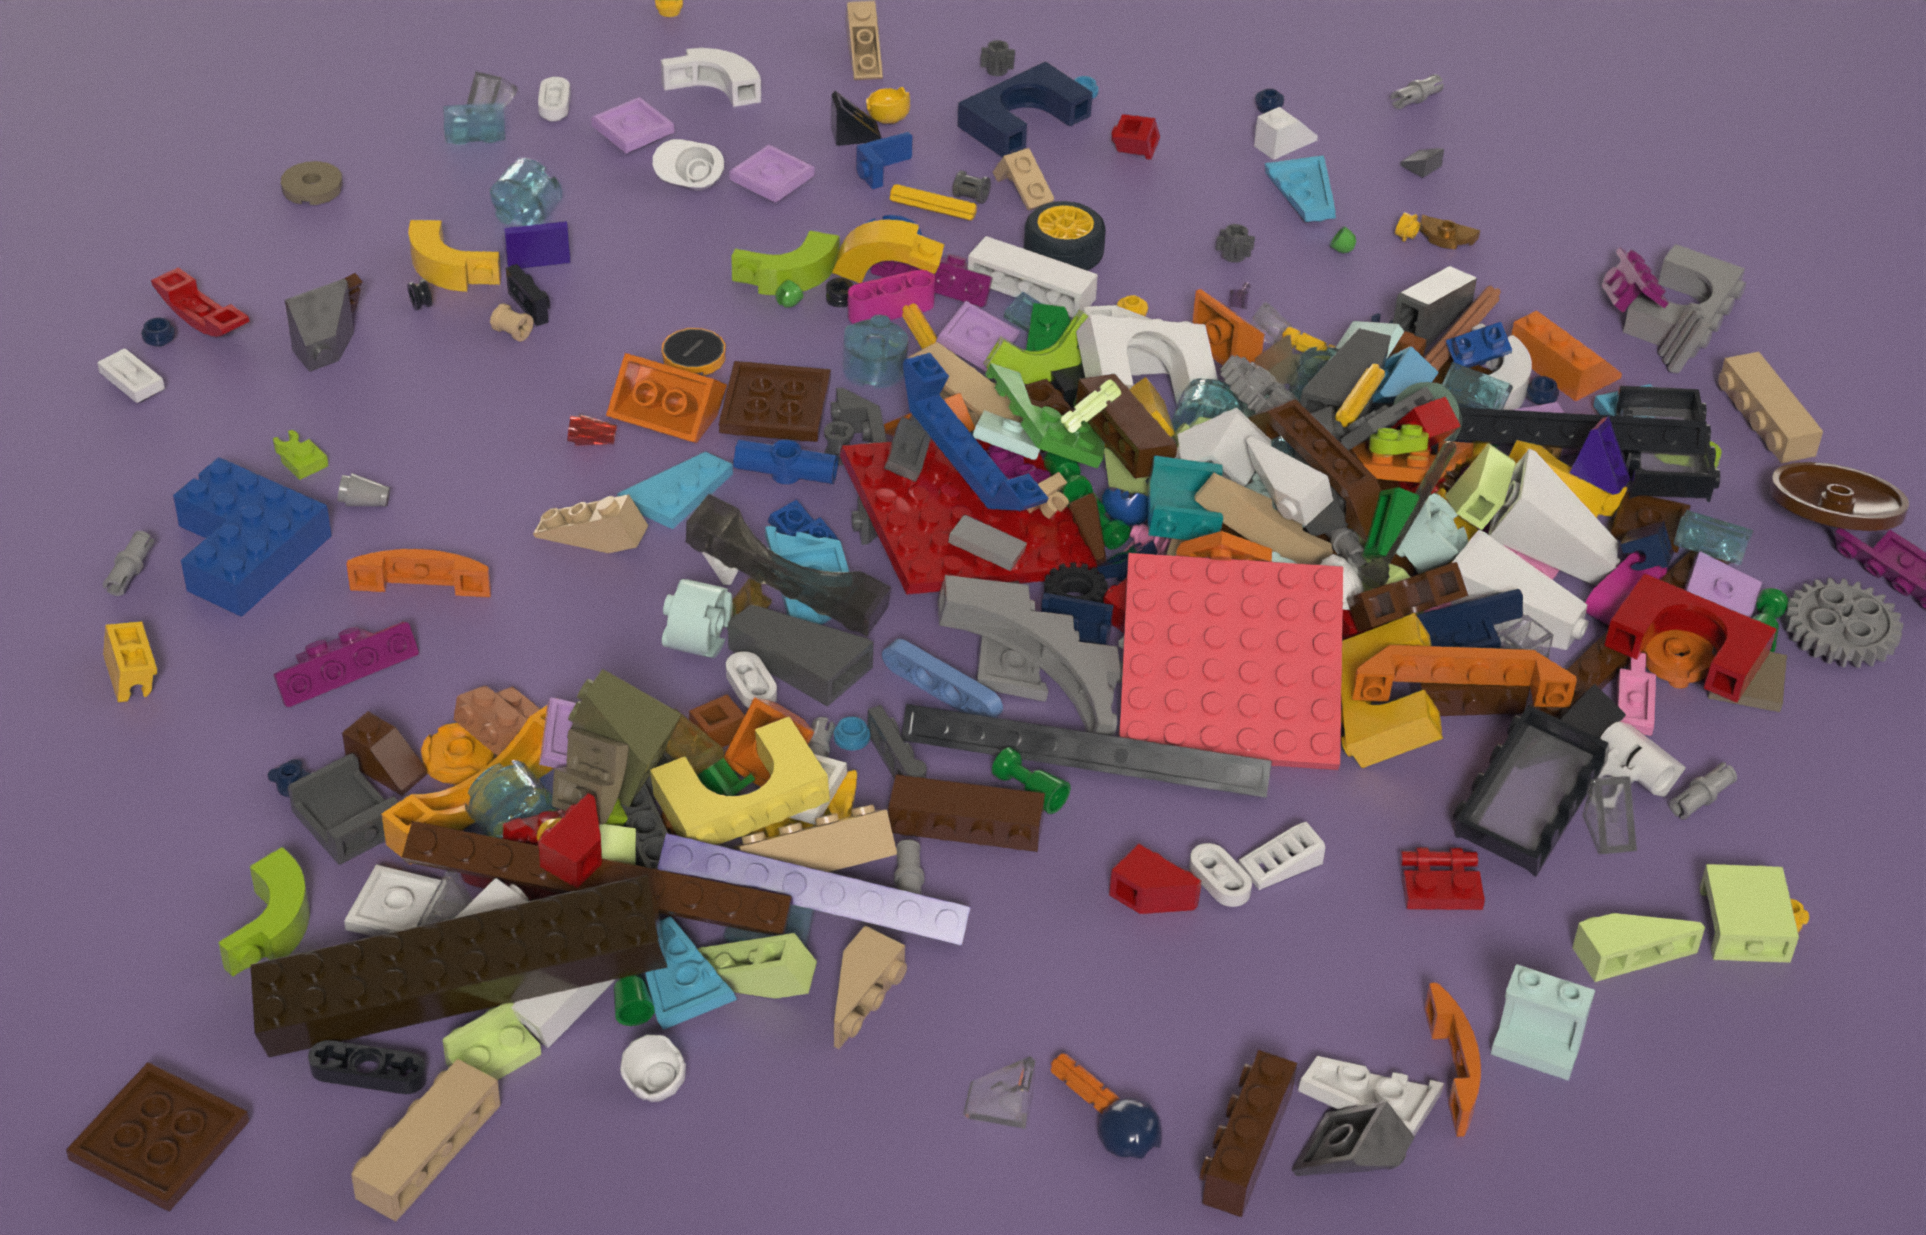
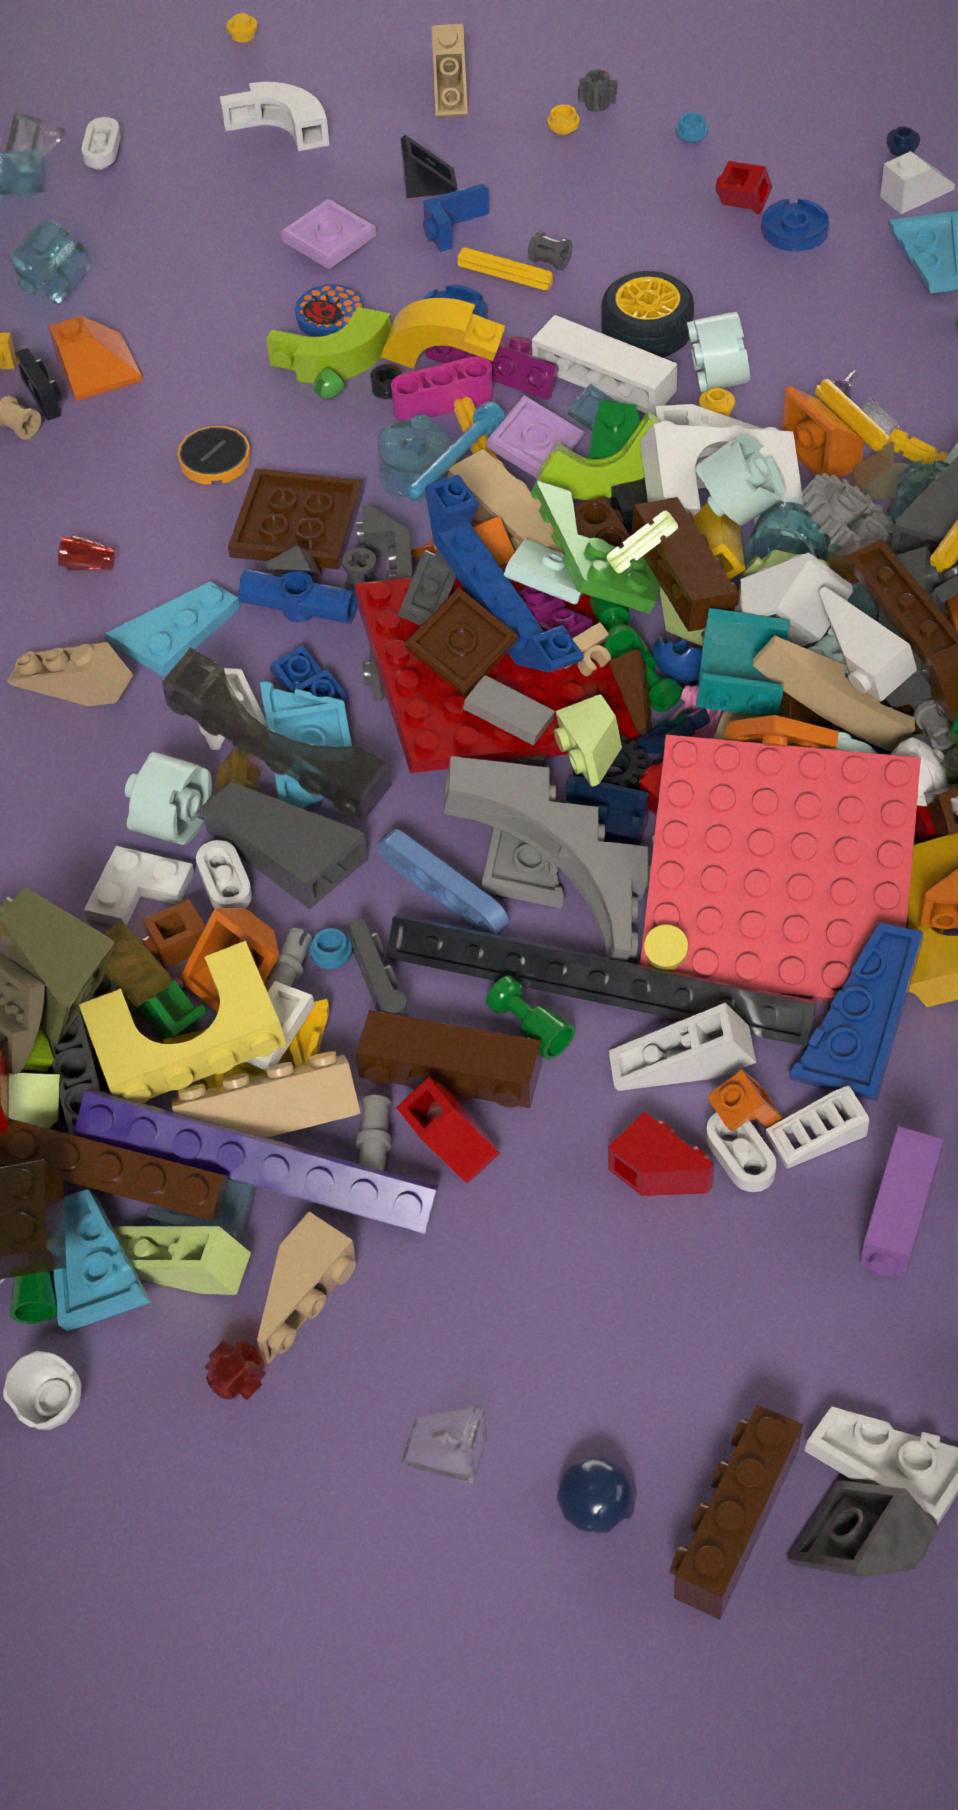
camera: 10 degrees right, 10 degrees up
(536, 245) = (38, 316): dark purple slope -> none
(571, 273) = (92, 357): none -> orange slope
(632, 125) = (182, 174): lavender plate -> none
(665, 398) = (173, 514): orange slope -> none
(680, 682) = (132, 876): none -> white plate
(688, 163) = (234, 223): white piece -> none
(778, 234) = (326, 309): none -> tile
(778, 431) = (294, 559): none -> dark grey slope
(816, 1048) = (235, 1370): none -> clear red gear
(888, 105) = (468, 149): yellow hair -> none
(933, 322) = (485, 422): none -> dark azure piece
(942, 488) = (461, 642): none -> reddish brown plate
(969, 81) = (563, 119): none -> yellow plate
(974, 863) = (448, 1129): none -> red slope
(1027, 177) = (613, 240): tan bracket -> none
(1042, 87) = (640, 127): dark blue arch -> none
(1058, 561) = (589, 736): none -> yellowish green slope
(1082, 1082) = (547, 1428): orange axle -> none
(1131, 265) = (718, 351): none -> light aqua brick
(1142, 721) = (666, 947): none -> light yellow tile
(1166, 361) = (741, 480): none -> light aqua brick
(1166, 802) = (686, 1051): none -> white slope
(1183, 168) = (795, 225): none -> blue tile
(1218, 834) = (743, 1100): none -> orange bracket
(1235, 243) = (844, 321): dark grey gear -> none
(1271, 329) = (852, 415): none -> yellow axle
(1312, 770) = (864, 1017): none -> blue wing
(1359, 903) = (901, 1203): none -> medium lavender slope

